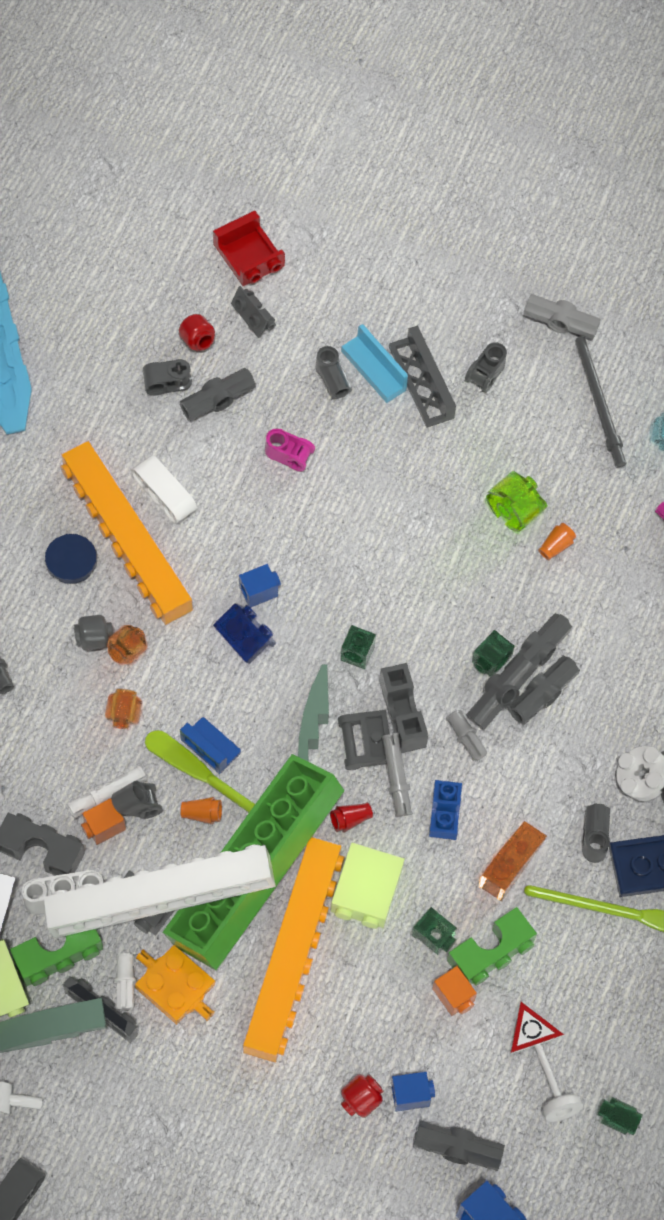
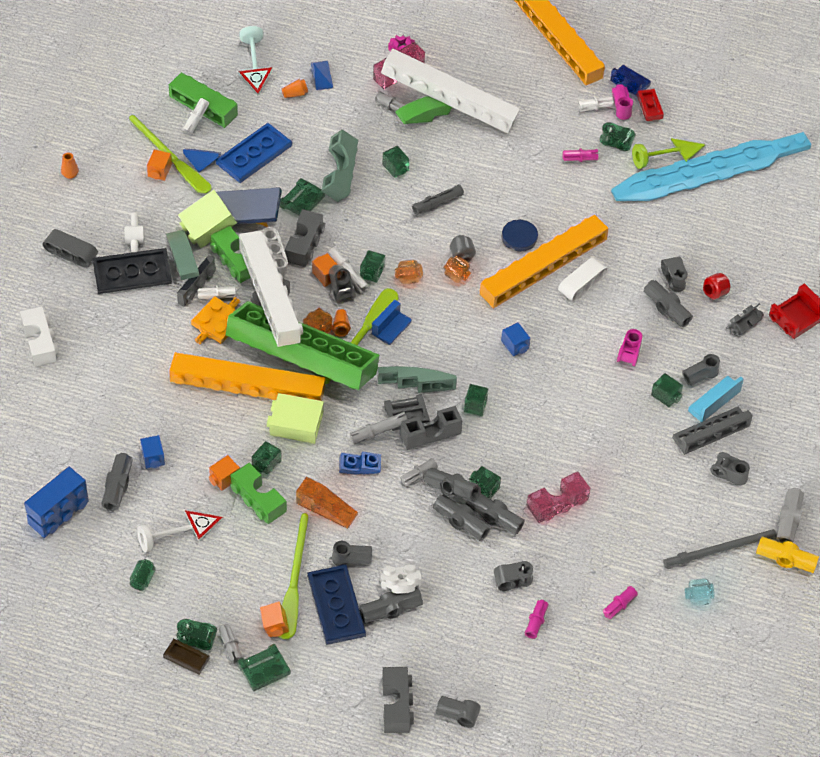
camera: 85 degrees right, 10 degrees down
(65, 1107) = (132, 270): none -> black tile
(106, 756) = (372, 266): none -> clear green brick
(205, 838) = (319, 320): none -> clear orange brick
(244, 632) = (479, 335): clear blue bracket -> none
(349, 816) = (347, 406): red cone -> none
(360, 417) = (667, 390): none -> clear green brick
(361, 1095) = (147, 424): red head -> none
(514, 550) = (546, 506): none -> clear pink arch
(516, 500) = (612, 486): clear neon green brick -> none
(557, 541) = (589, 522): orange cone -> none
(616, 329) = (787, 554): none -> yellow piece
(638, 641) = (512, 576): none -> dark grey piece

